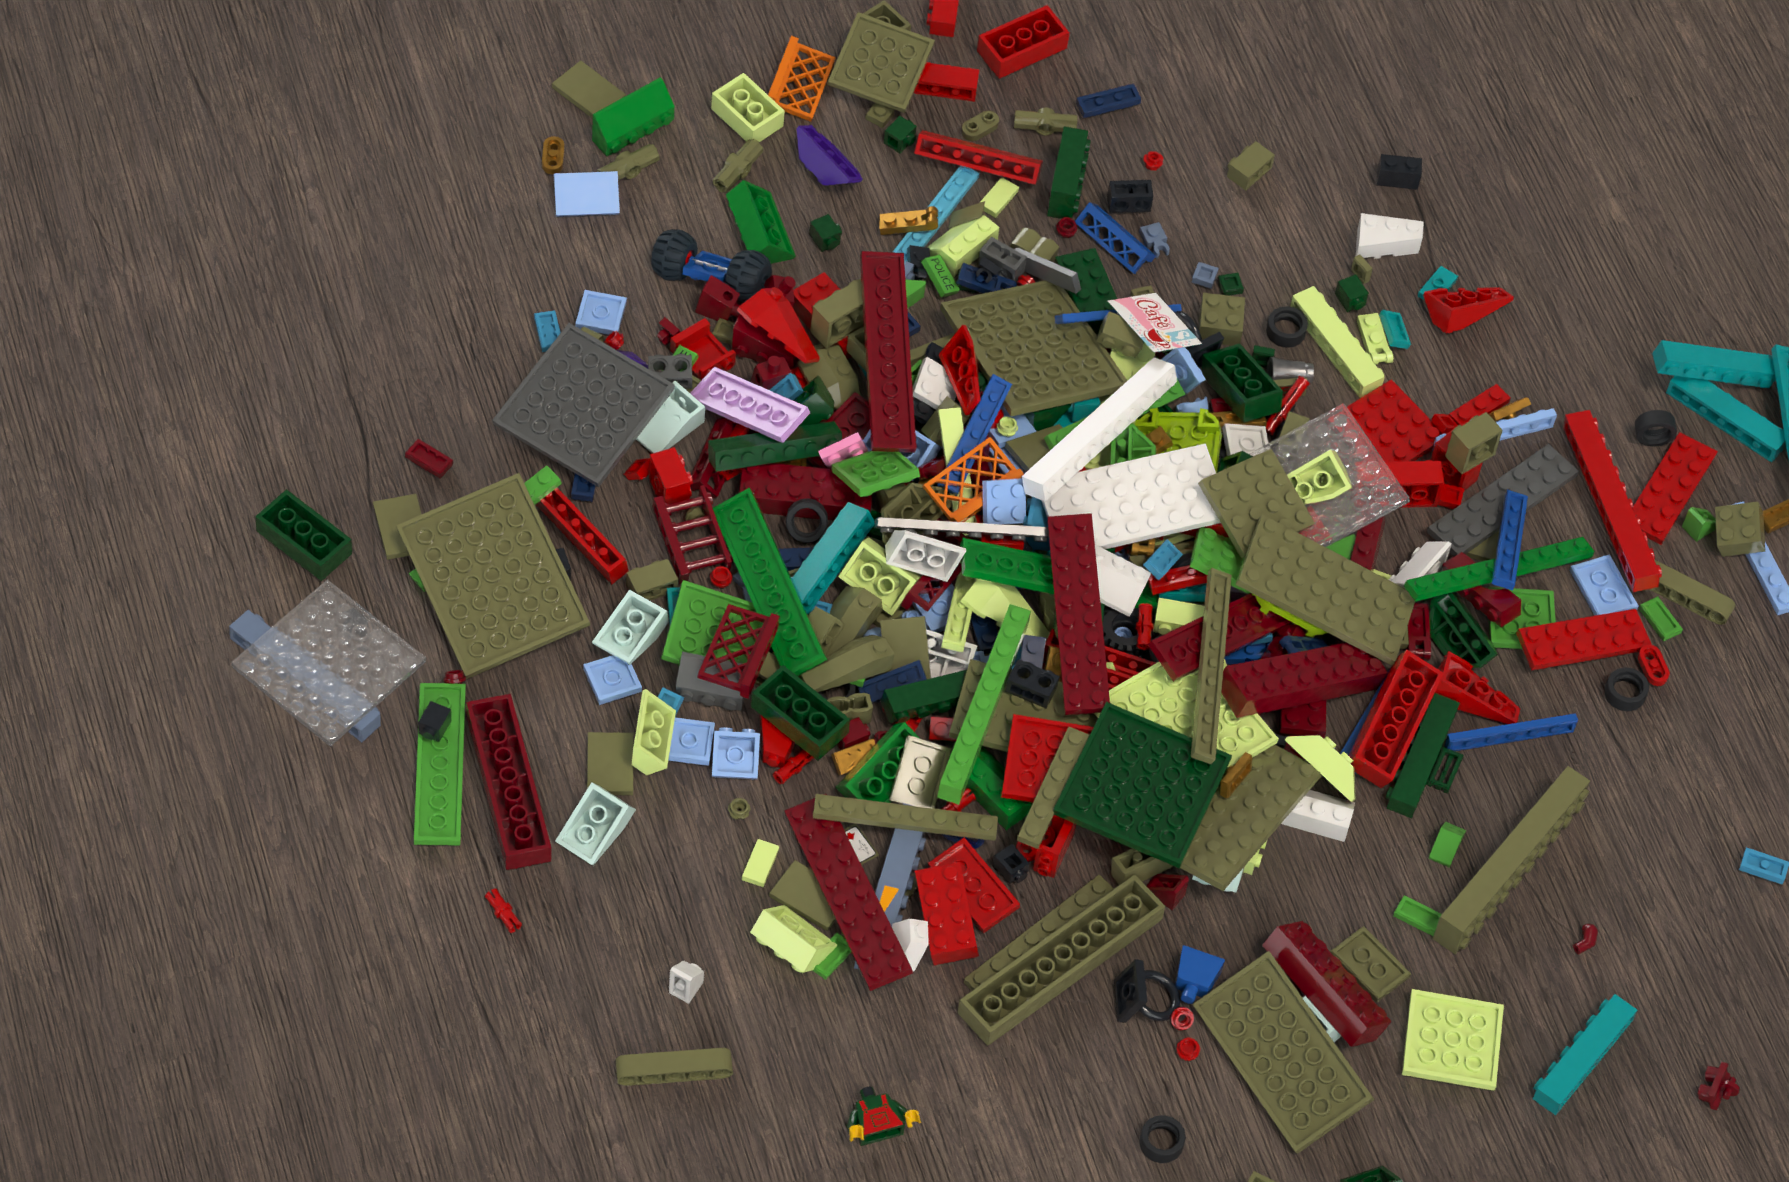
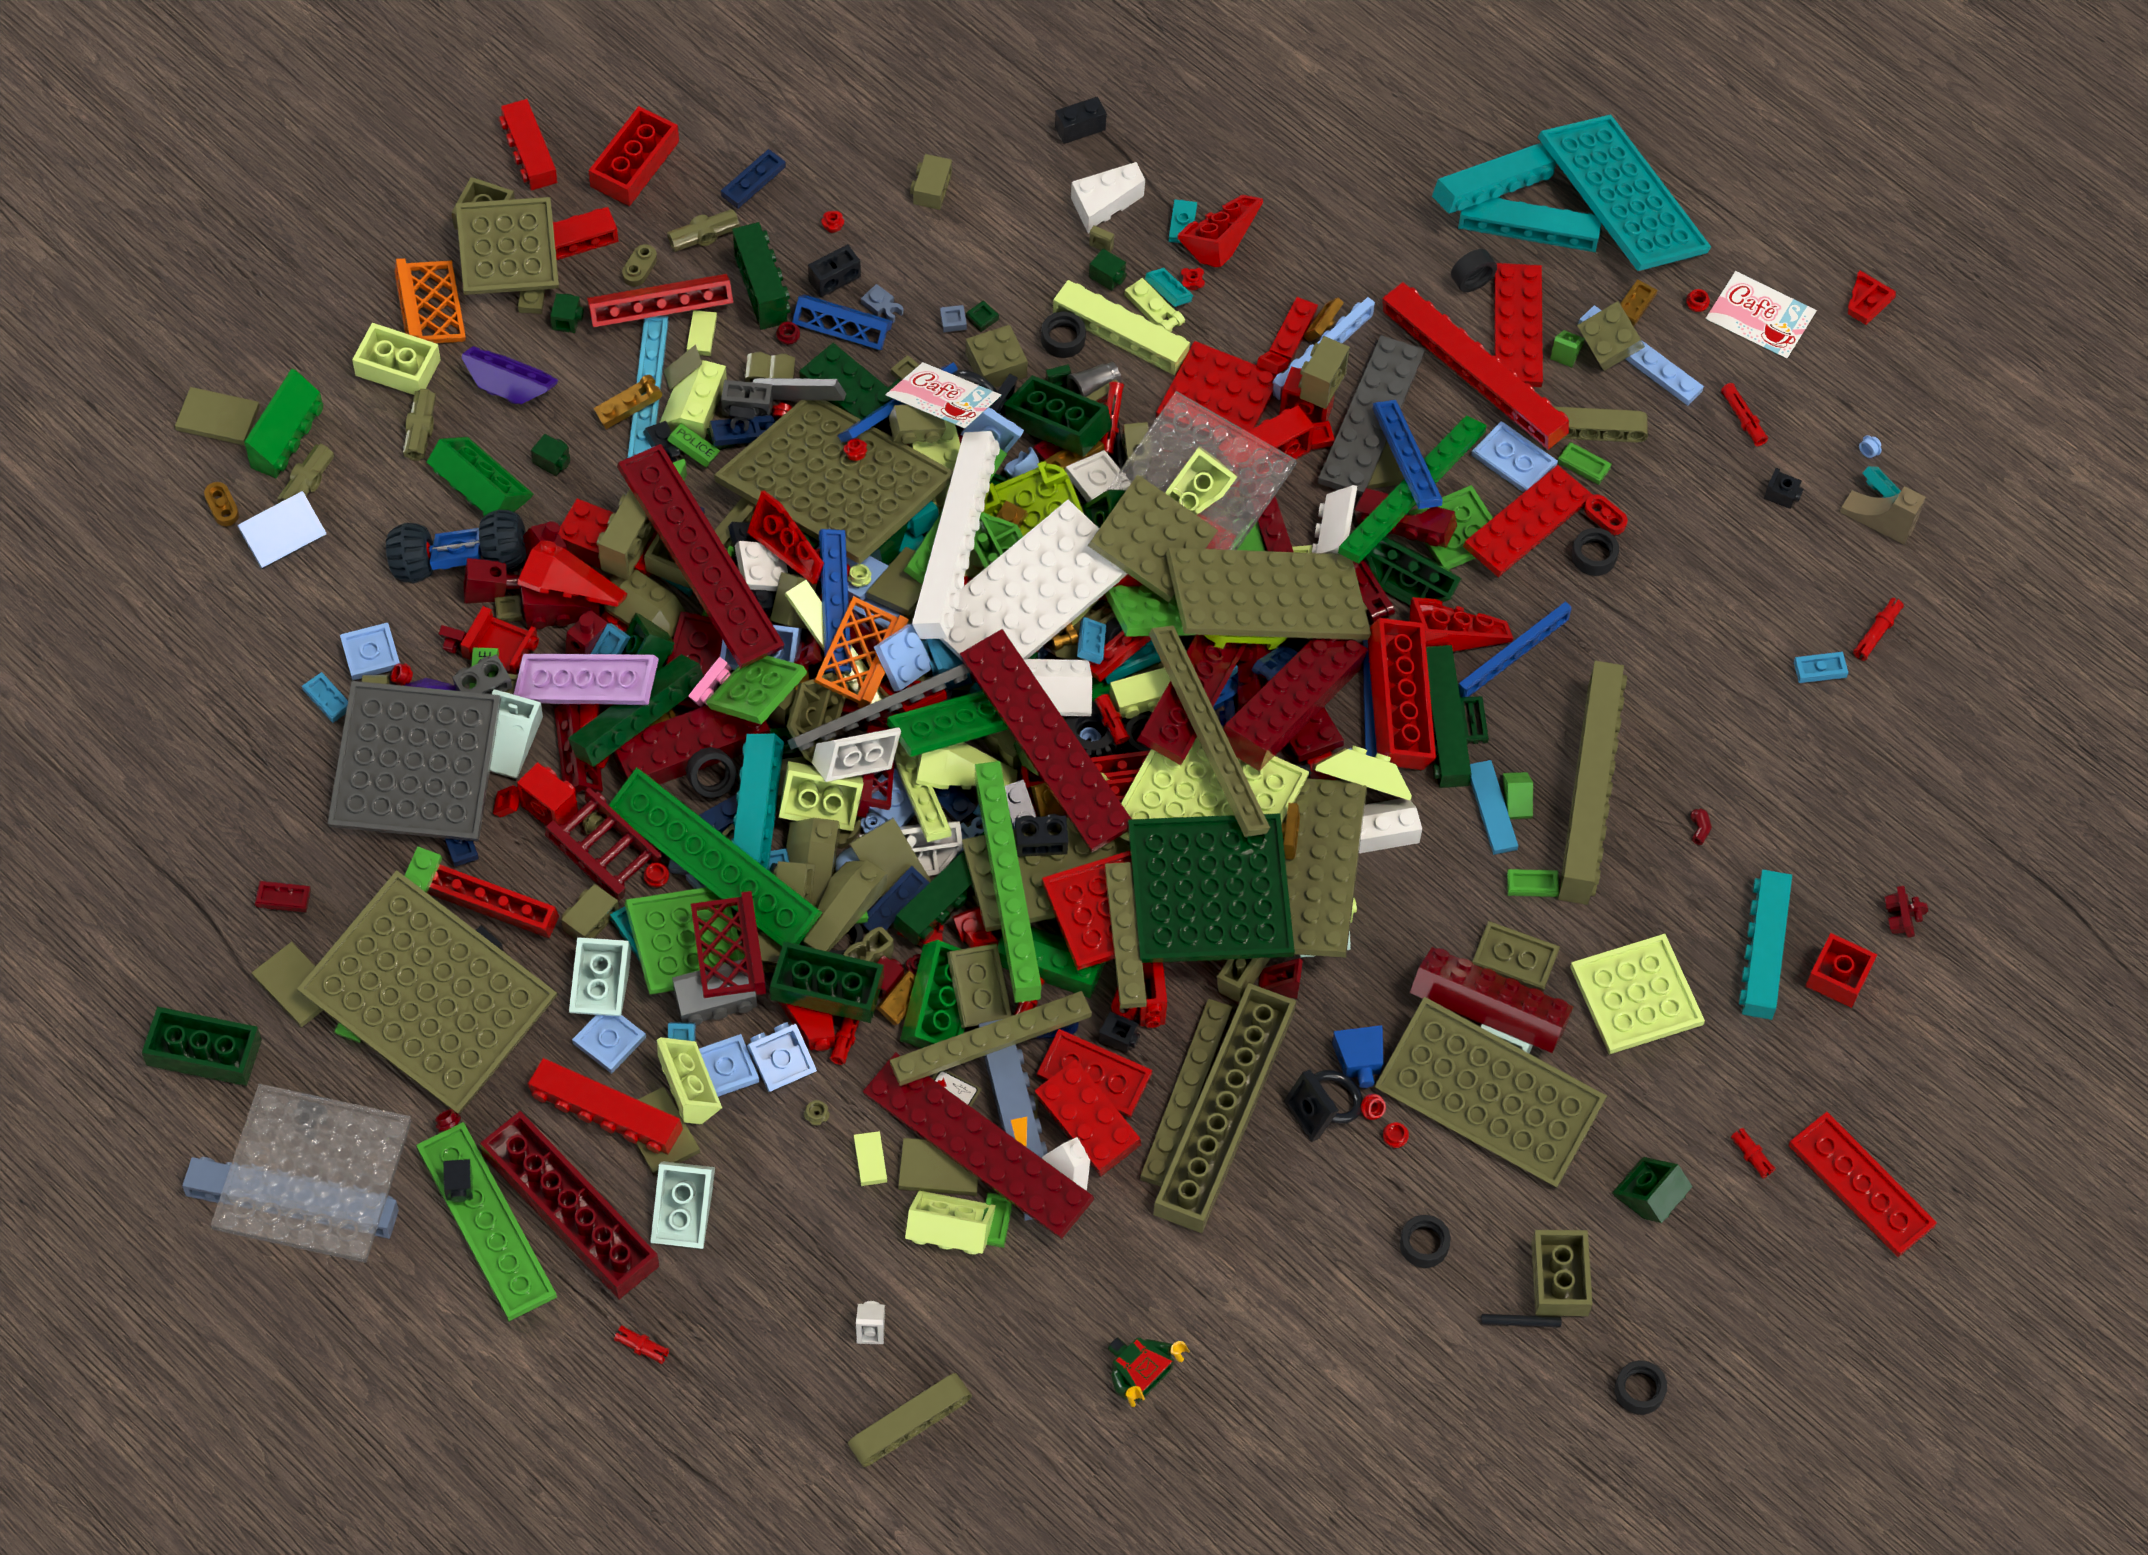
camera: 25 degrees left, 5 degrees up
(578, 724) = (605, 1107): none -> red brick
(943, 741) = (980, 938): none -> red plate
(1061, 332) = (855, 449): none -> red plate
(1417, 336) = (1192, 283): none -> red plate
(1420, 843) = (1492, 808): none -> dark azure tile
(1634, 1103) = (1841, 970): none -> red brick

